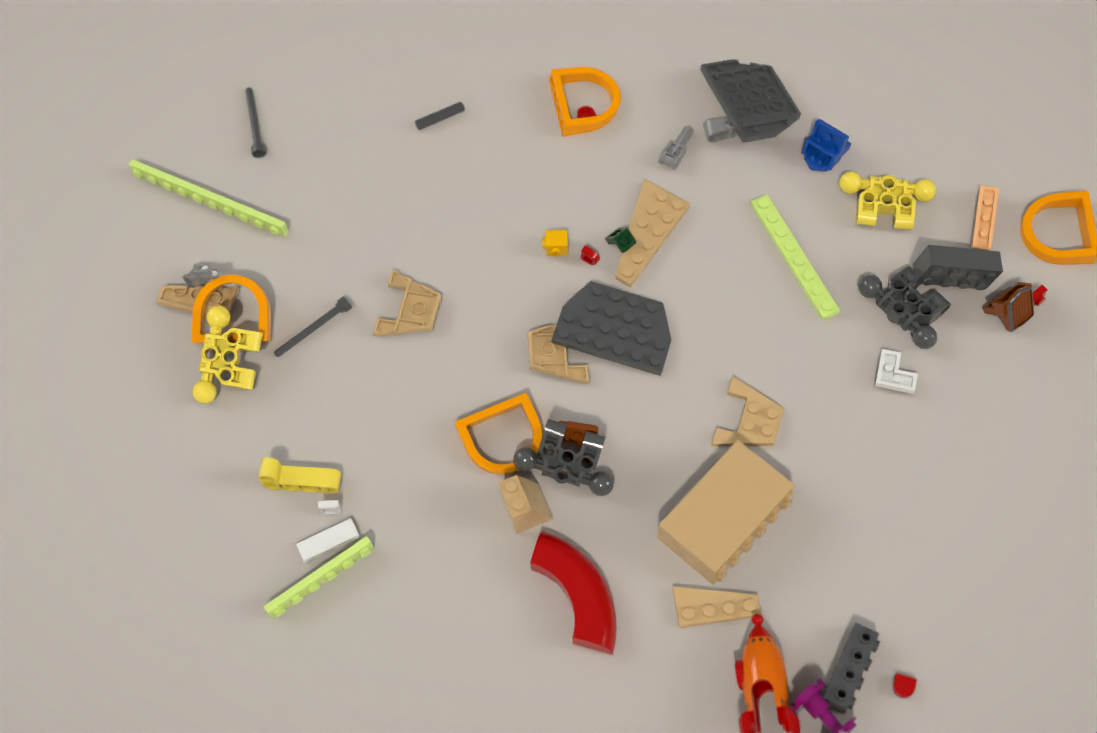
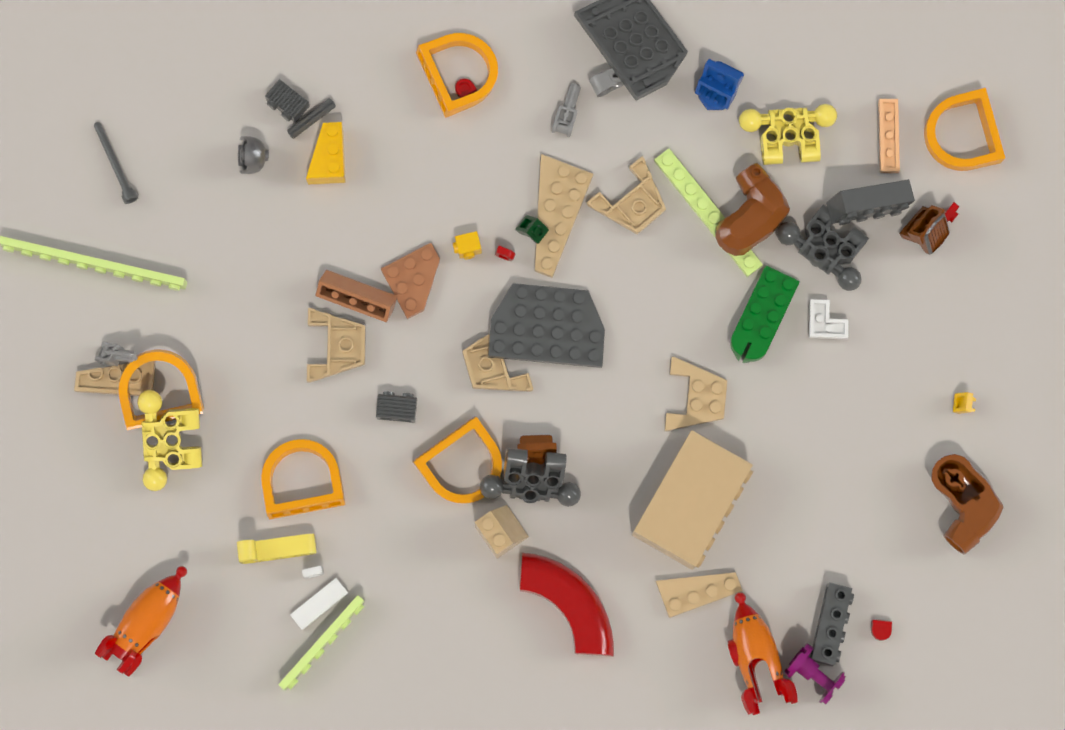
camera: 20 degrees left, 15 degrees up
(148, 519) = (143, 623): none -> orange piece
(341, 306) = (266, 358): dark grey piece -> none
(341, 444) = (304, 505): none -> light orange window
(377, 133) = (251, 155): none -> flat silver cylinder
(421, 97) = (287, 101): none -> dark grey brick
(439, 266) = (356, 296): none -> nougat brick
(446, 147) = (328, 157): none -> yellow wedge
(452, 372) = (396, 408): none -> dark grey brick
(497, 264) = (413, 279): none -> nougat plate
(724, 239) = (636, 208): none -> tan wing
(831, 355) = (763, 314): none -> green plate
(841, 264) = (756, 217): none -> dark orange piece
(1021, 568) = (970, 497): none -> dark orange piece
(1026, 475) = (963, 403): none -> yellow tile

